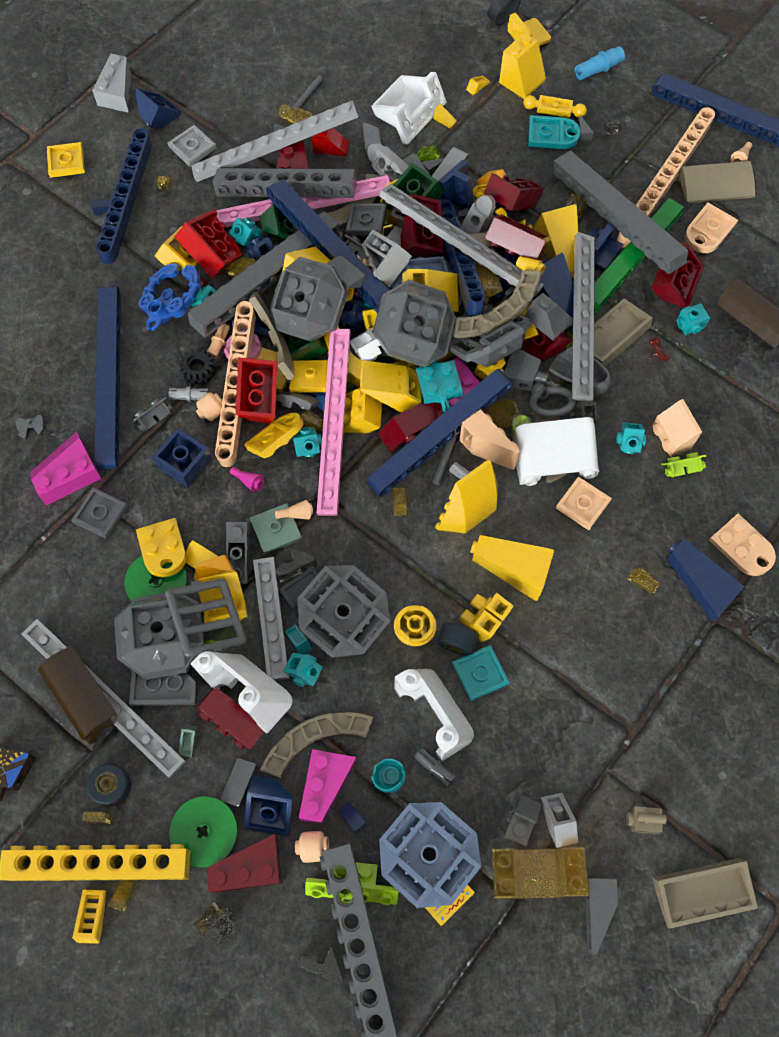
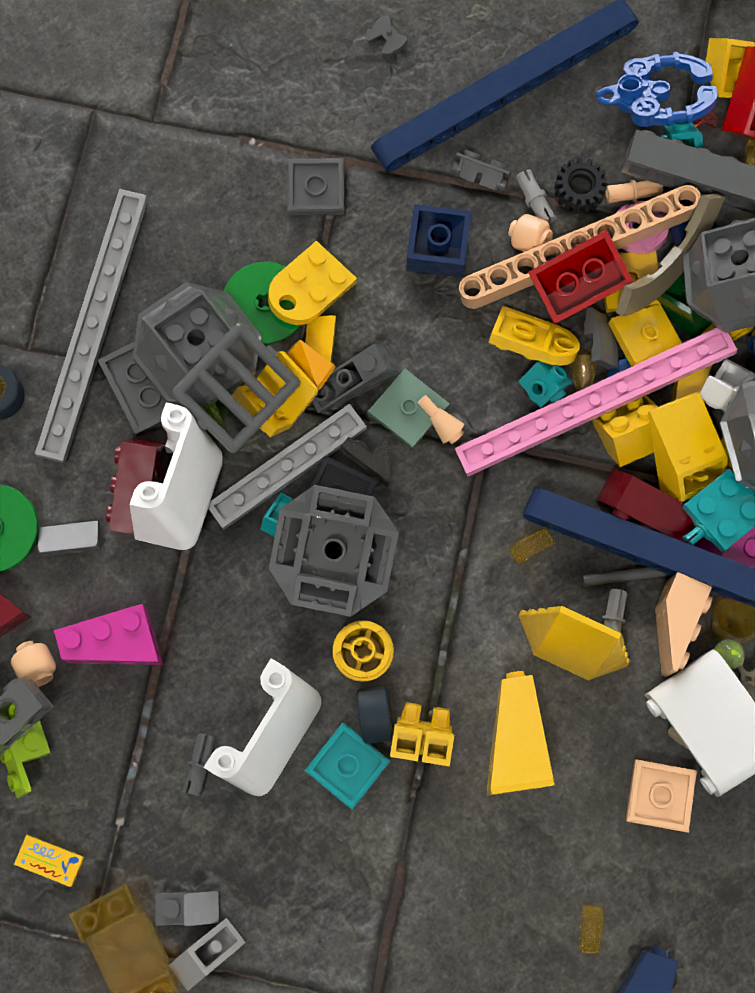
camera: 65 degrees right, 10 degrees up
(64, 471) = (348, 111): dark pink wedge -> none
(78, 694) = (76, 294): dark brown brick -> none
(188, 740) = (92, 451): sand green piece -> none
(252, 480) = (456, 345): dark pink cone -> none
(268, 807) = (55, 586): dark blue slope -> none
(303, 669) = (238, 540): teal brick -> none
(310, 732) = (172, 591): dark tan tile -> none
(352, 817) = (92, 693): dark blue piece -> none
(389, 775) = (159, 713): teal hair -> none
(455, 850) = (50, 810): sand blue piece -> none

